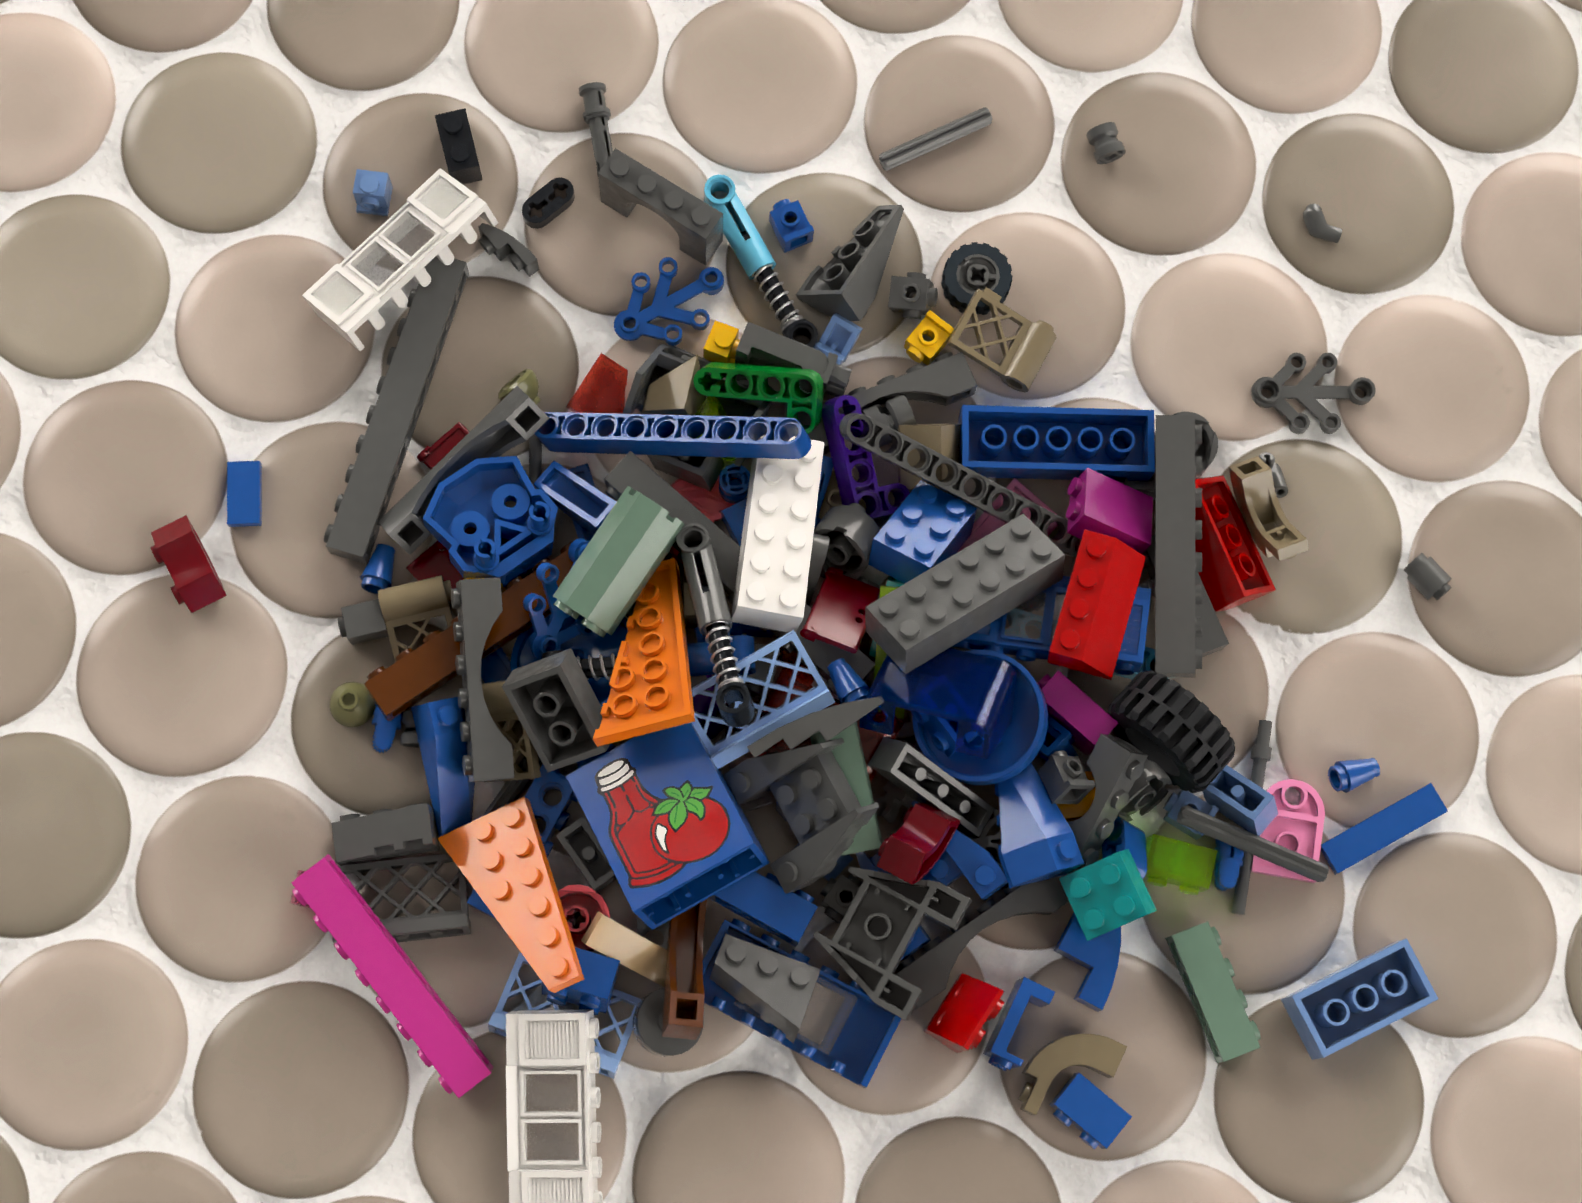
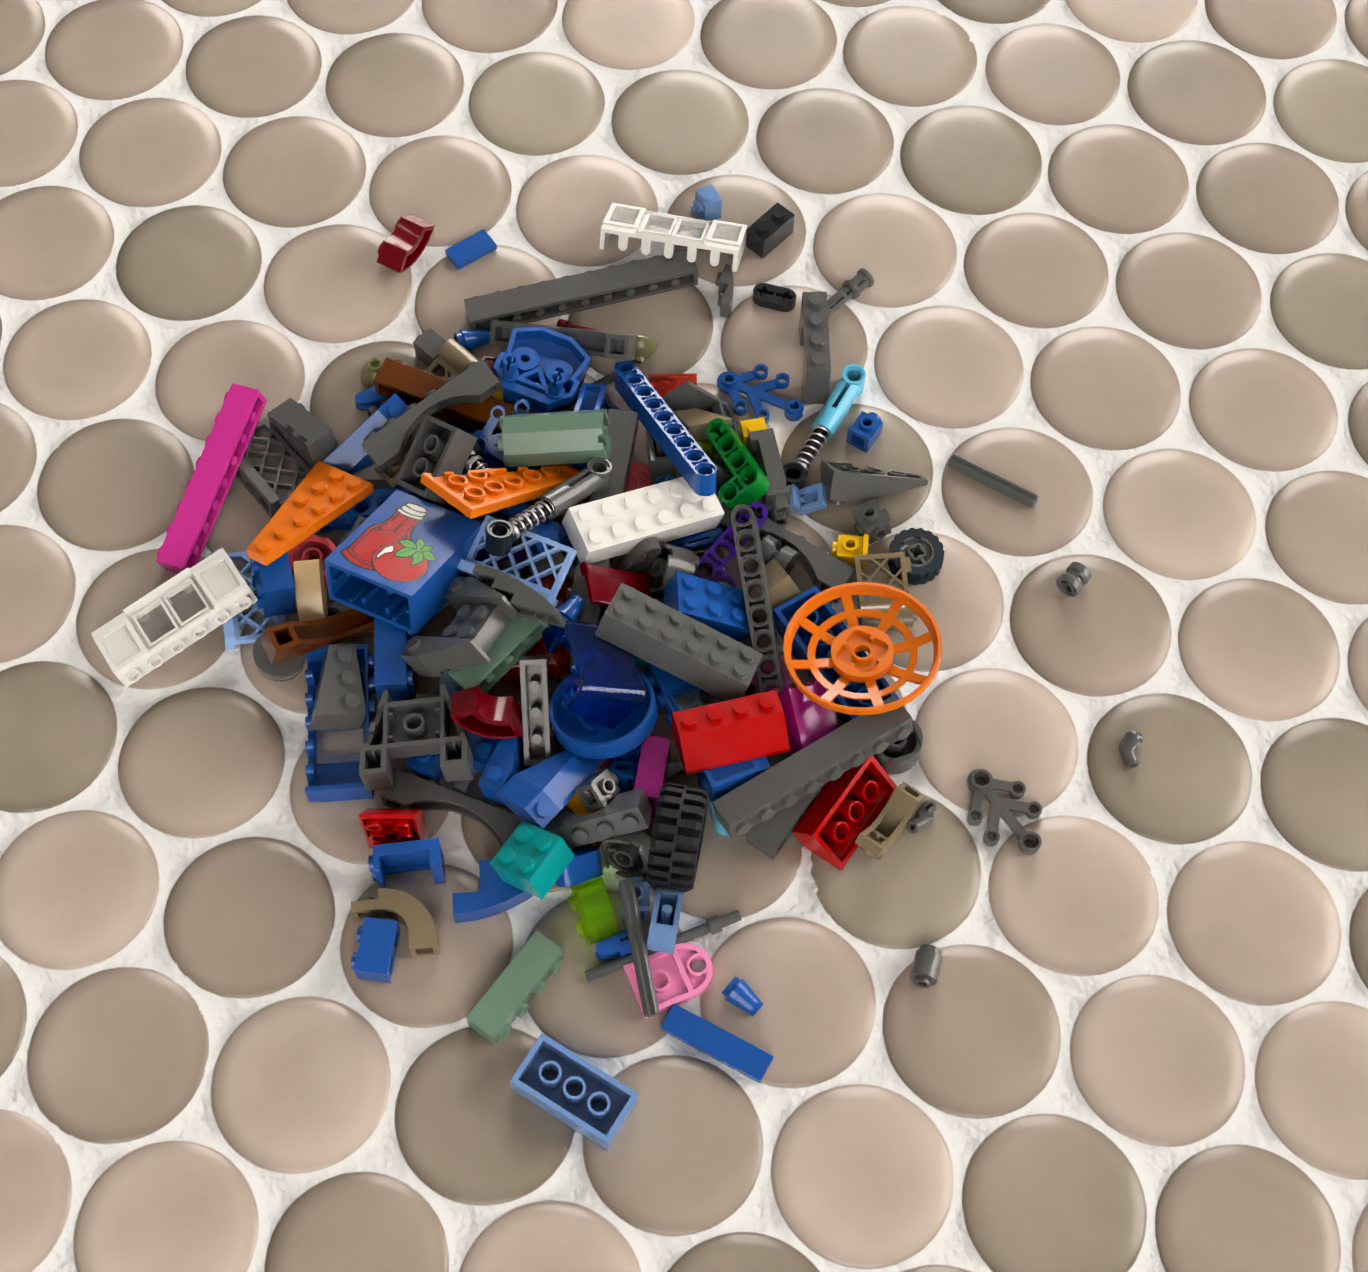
camera: 65 degrees right, 15 degrees down
(1076, 392) = (859, 639): none -> orange dish

